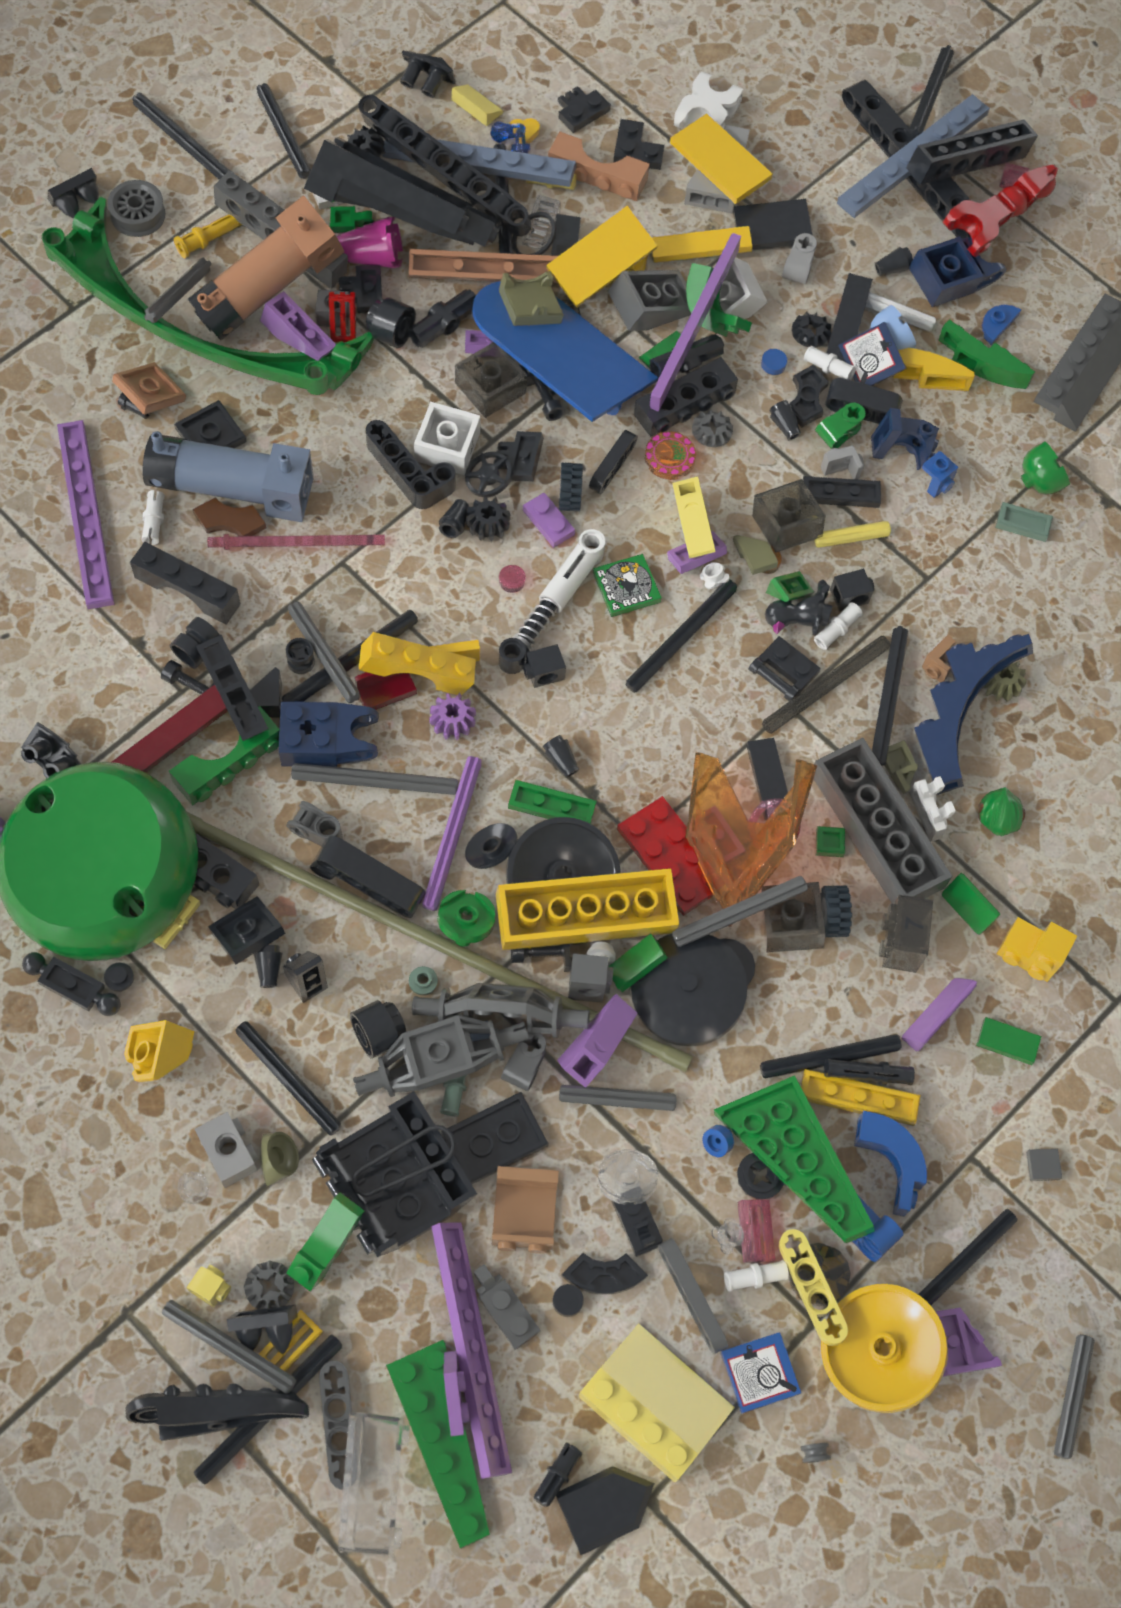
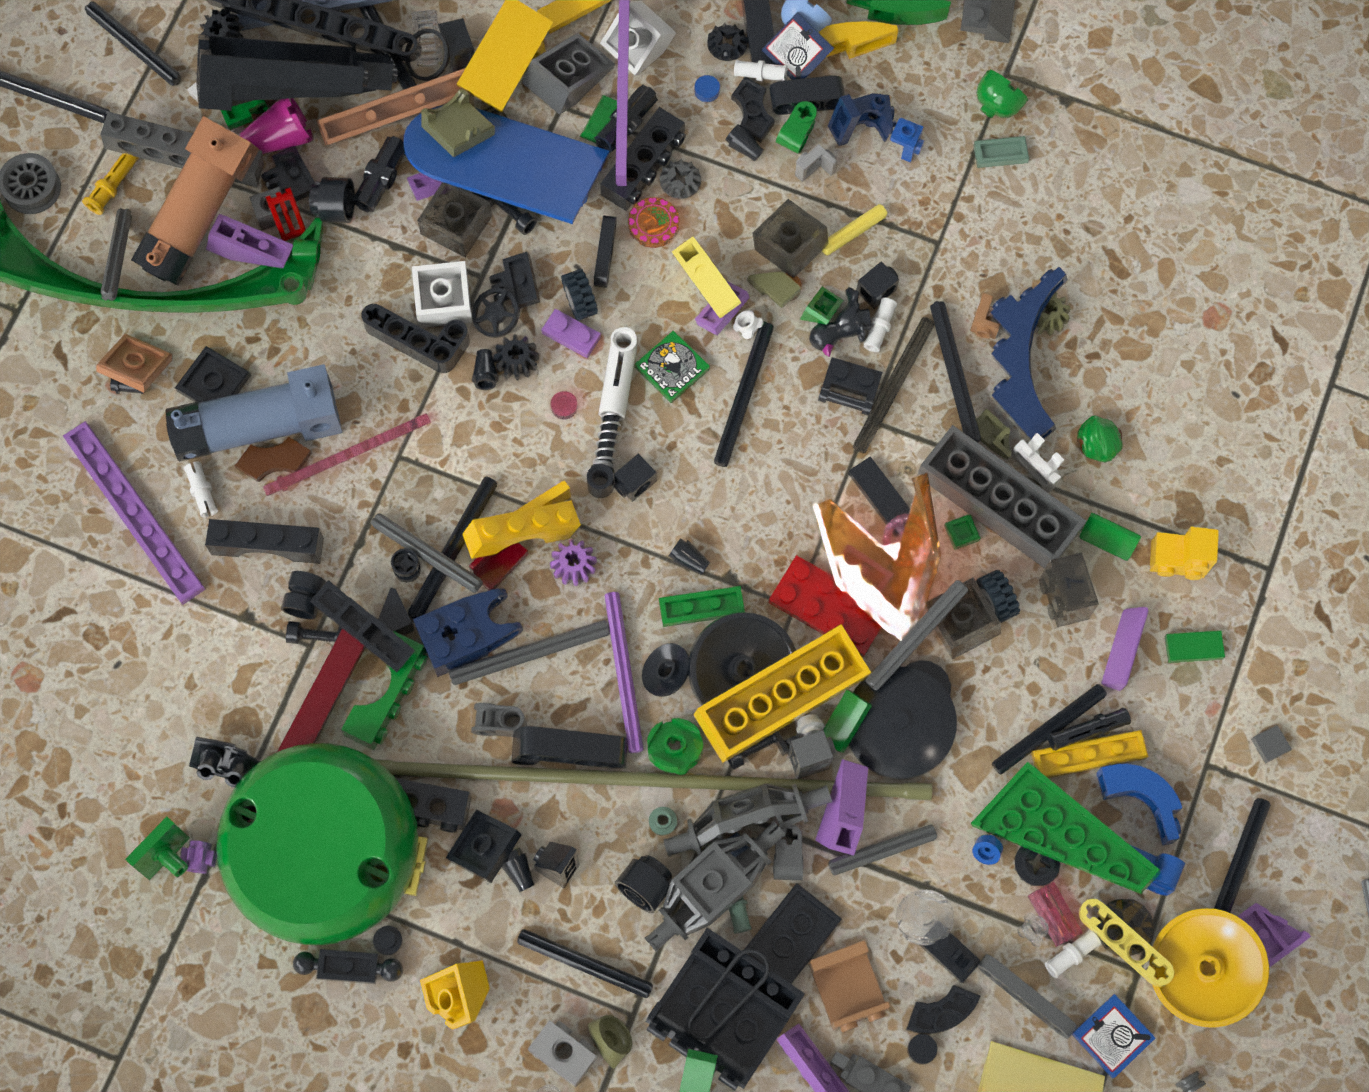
camera: 20 degrees left, 5 degrees up
(716, 319) = (606, 46): green arch -> none
(844, 491) = (827, 190): black tile -> none

